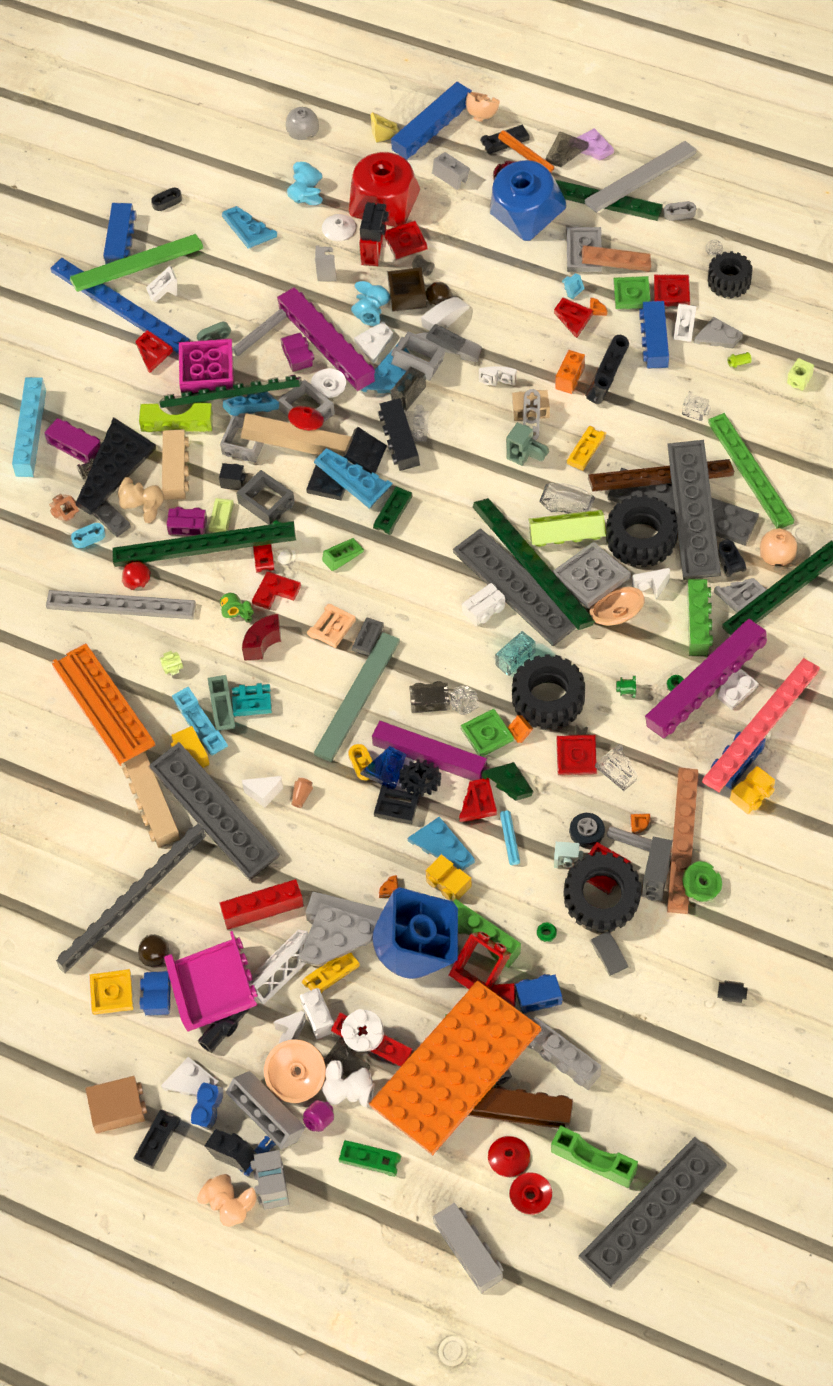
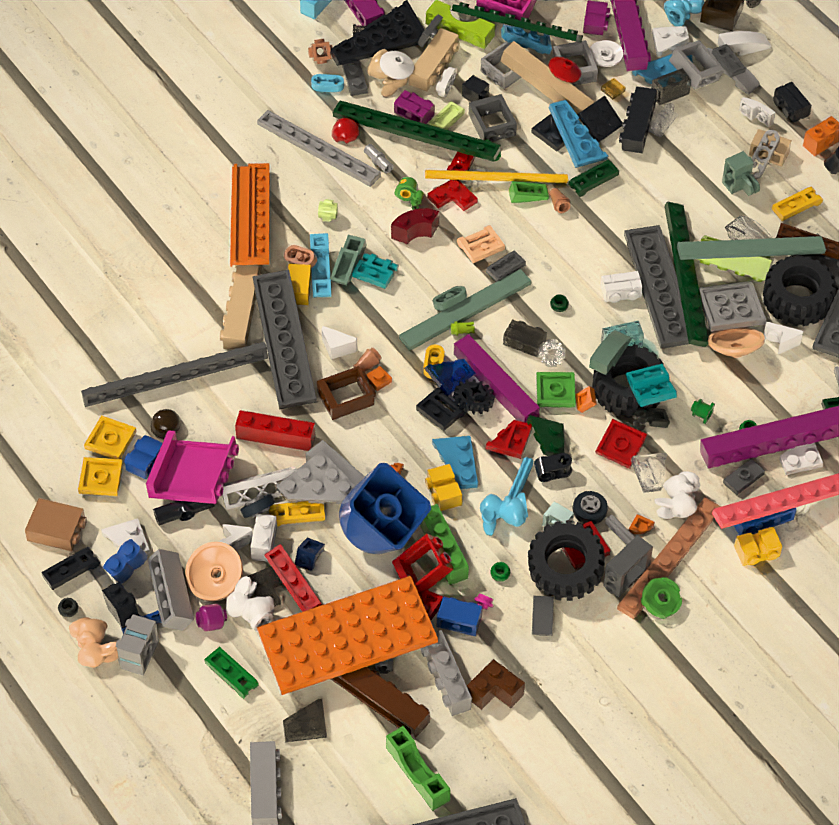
camera: 25 degrees right, 5 degrees down
(126, 1034) = (100, 476): none -> yellow plate
(147, 493) = (396, 65): none -> white dish
(155, 438) = (430, 31): none -> dark grey plate
(176, 1173) = (65, 603): none -> pearl dark grey plate
(177, 721) = (303, 256): none -> nougat plate
(184, 588) = (378, 158): none -> light grey pin
(200, 487) = (448, 78): none -> white plate
(291, 849) = (341, 380): none -> reddish brown window
(293, 986) = (257, 505): none -> black wheel
(303, 553) = (496, 176): none -> yellow piece
(320, 803) = (379, 378): none -> orange plate
(337, 693) = (449, 298): none -> sand green plate
(354, 414) = (613, 88): none -> clear yellow tile
(363, 718) = (462, 328): none -> lime pin
(364, 1042) = (286, 556): white plate -> none
(367, 1001) = (308, 553): none -> dark blue bracket
(376, 548) = (560, 201): none -> nougat cone
(437, 293) = (749, 22): dark brown hair -> none
(437, 643) = (559, 299): none -> dark green plate
(466, 1169) = (306, 723): none -> clear smoke wing
(505, 1165) = (348, 740): red dish -> none
(521, 675) = (609, 352): none -> sand green slope
(521, 869) = (510, 510): none -> medium azure animal
(522, 351) = (792, 102): none -> black brick
(531, 808) = (552, 468): none -> black piece
(534, 1184) = (341, 762): red dish -> none
(551, 968) = (484, 601): none -> dark pink plate
(576, 688) = (651, 385): none -> teal slope
(579, 512) = (751, 248): none -> sand green tile
(589, 714) = (655, 417): none -> pearl dark grey plate
(612, 1037) = (498, 683): none -> reddish brown brick
(656, 771) = (681, 491): none -> white animal
(698, 617) = (804, 383): bright green brick -> none
(699, 730) = (744, 476): none -> dark grey plate
(732, 991) = (629, 699): black brick -> none

